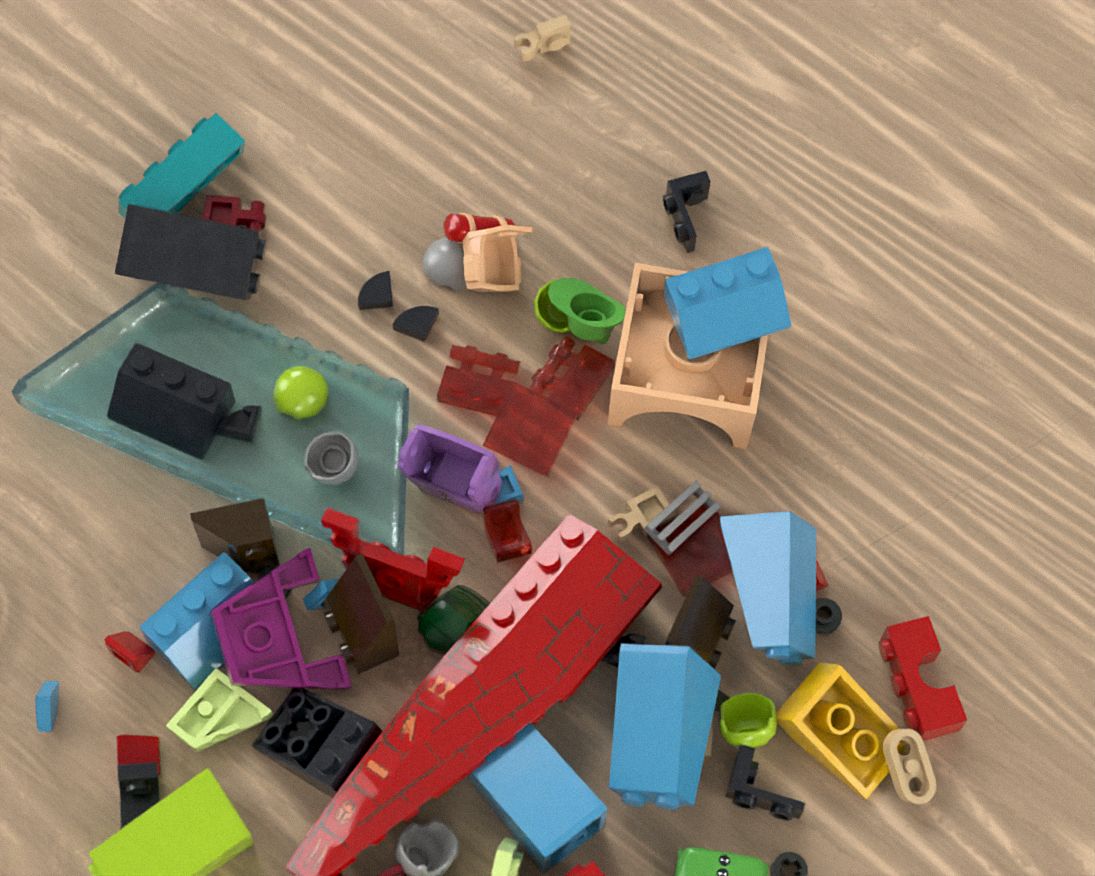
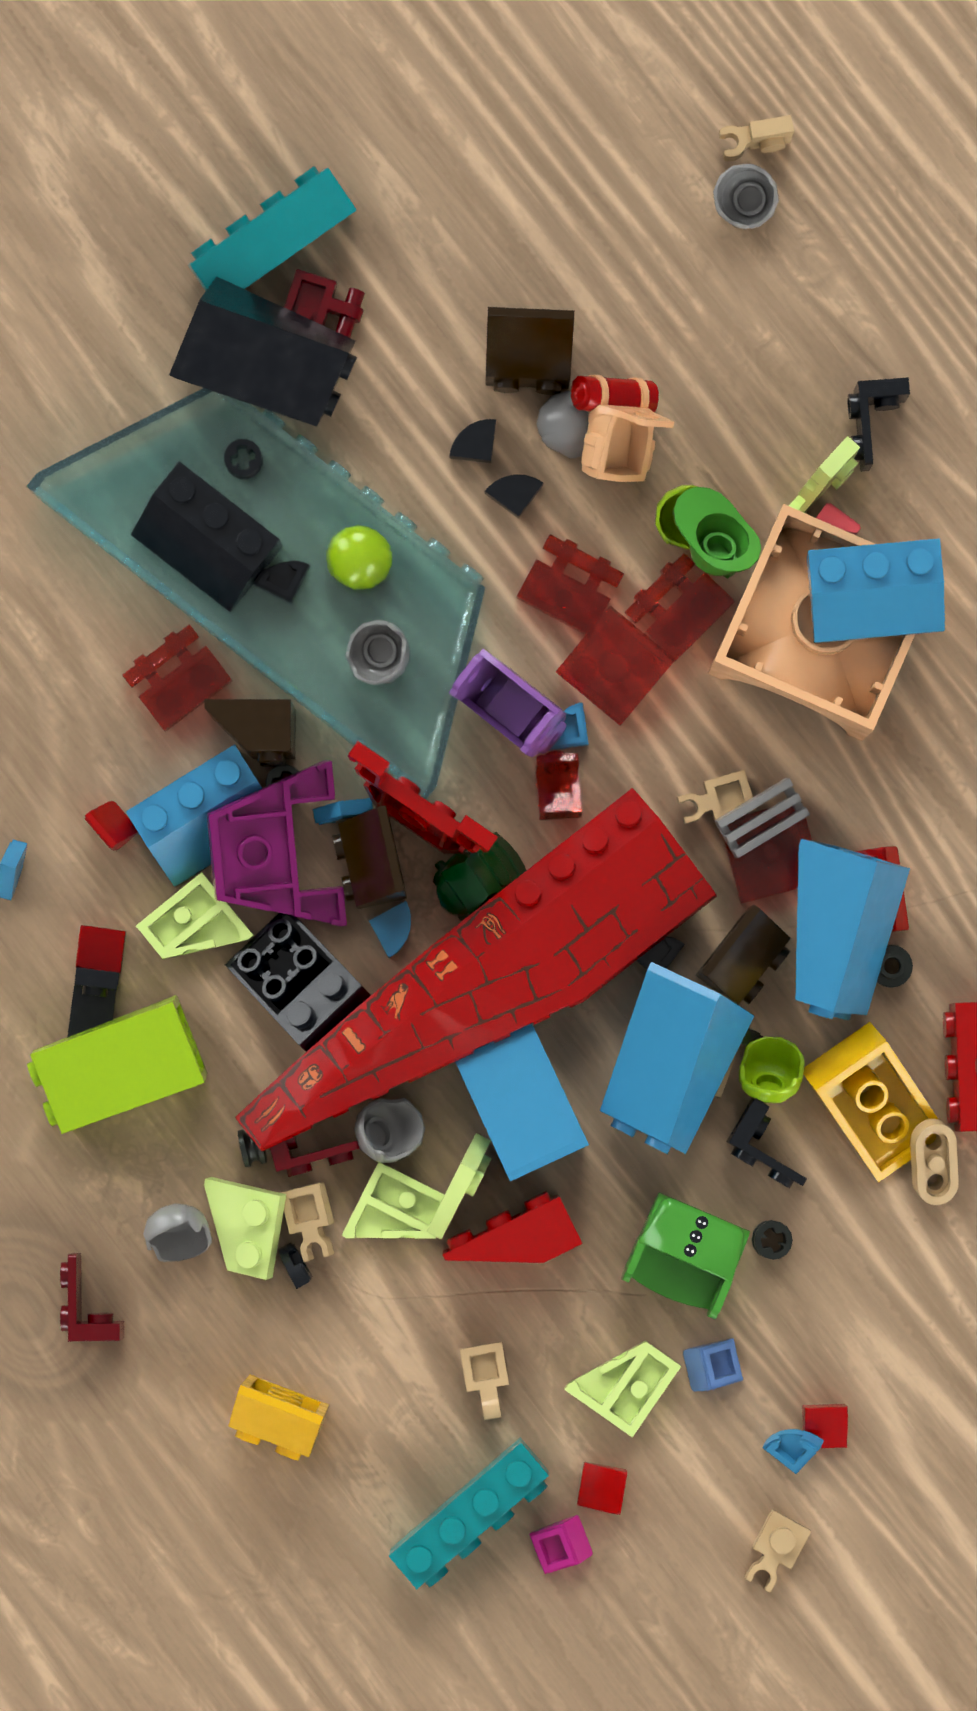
camera: 15 degrees right, 20 degrees up
(172, 526) = (183, 688): none -> clear red plate
(198, 334) = (232, 453): none -> black bush
(392, 680) = (393, 928): none -> dark azure tile
(403, 203) = (529, 349): none -> dark brown slope
(545, 77) = (746, 196): none -> light grey hair
(667, 241) = (832, 471): none -> yellowish green wing

